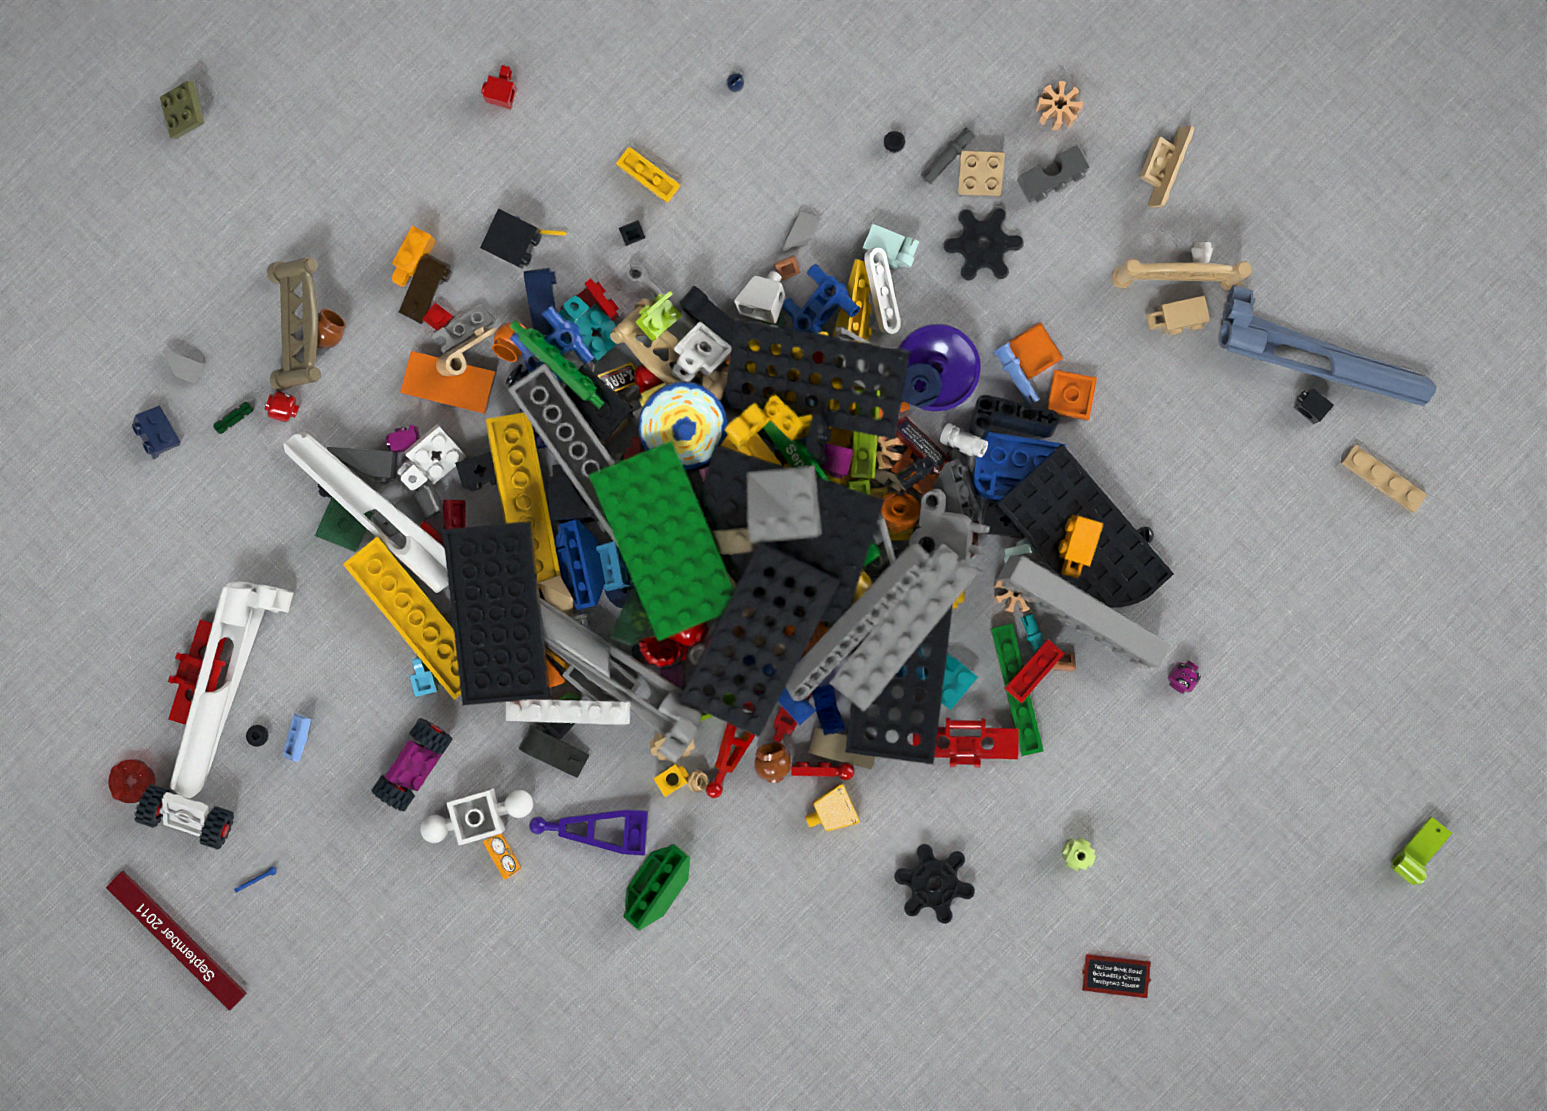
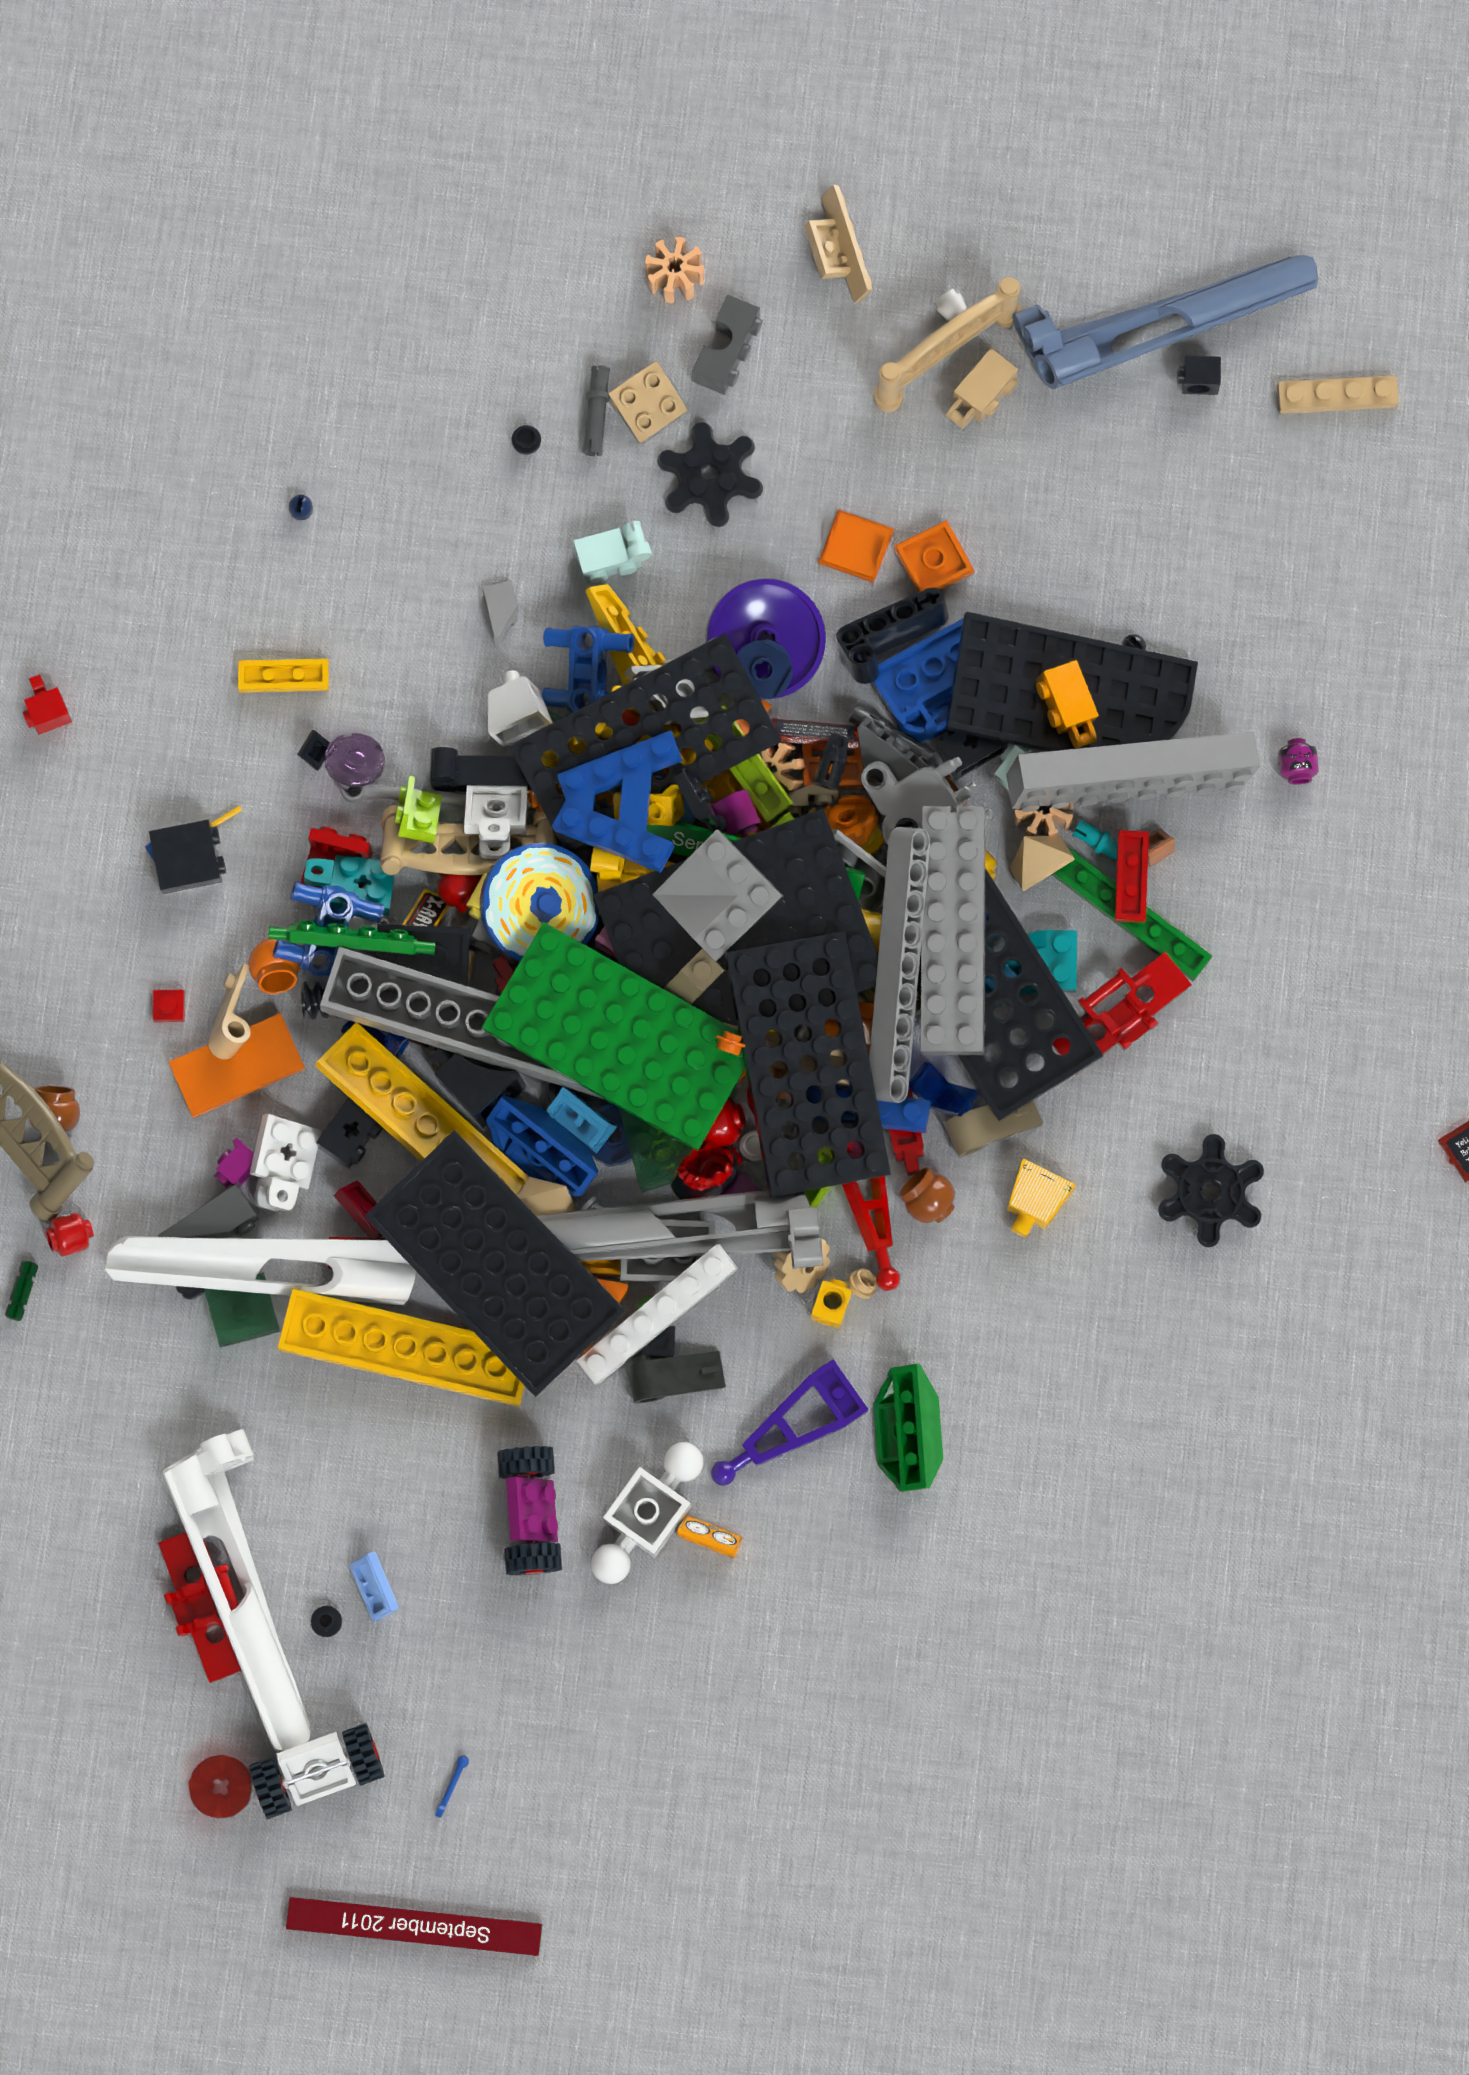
camera: 40 degrees left, 10 degrees down
(409, 255) = (88, 958): light orange brick -> none
(418, 509) = (314, 1220): dark grey door -> none
(423, 681) = (467, 1413): medium azure plate -> none
(424, 284) = (128, 983): dark brown door -> none
(462, 328) = (206, 995): light grey plate -> none
(540, 296) = (268, 893): dark blue door -> none
(649, 256) = (354, 760): none -> clear purple tile
(721, 596) = (729, 1043): none -> orange plate
(787, 268) = (516, 658): nougat slope -> none
(793, 389) = (633, 770): none -> blue plate
(844, 771) = (1015, 1146): red plate -> none
(882, 290) = (641, 602): white plate -> none
(966, 442) = (859, 693): white axle -> none
(990, 618) = (1039, 858): none -> tan slope
(1011, 364) = (843, 577): medium blue pin -> none
(1071, 850) = (1335, 1045): yellowish green brick -> none

